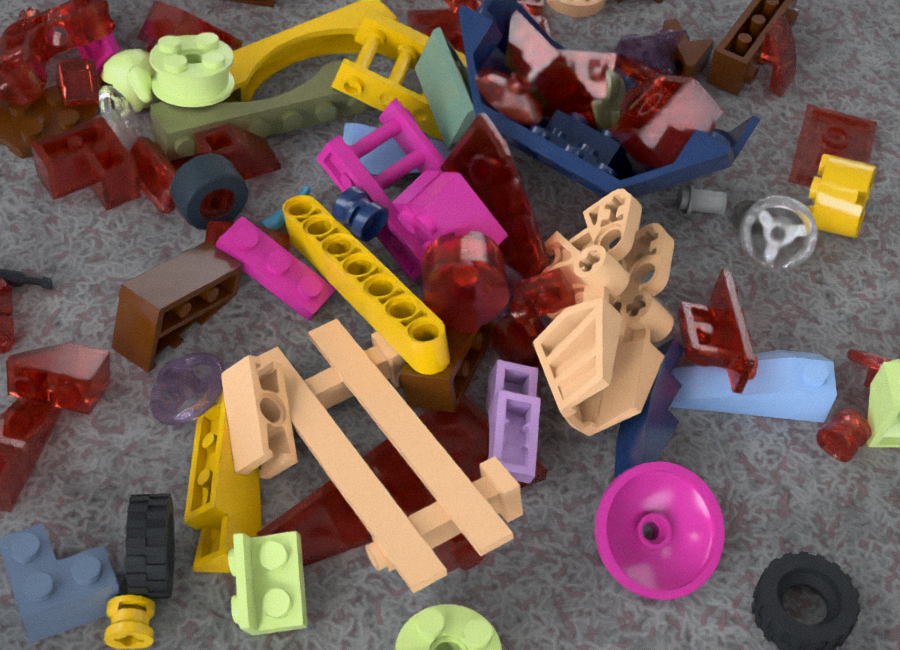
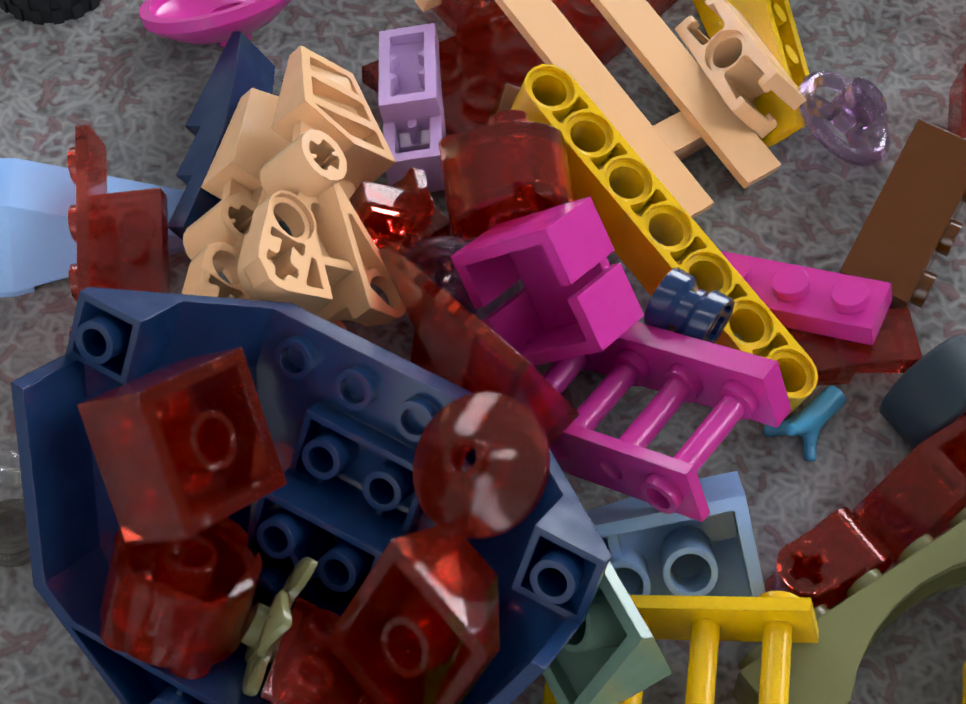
camera: 175 degrees right, 5 degrees up
(304, 136) = (828, 560): none -> clear red piece

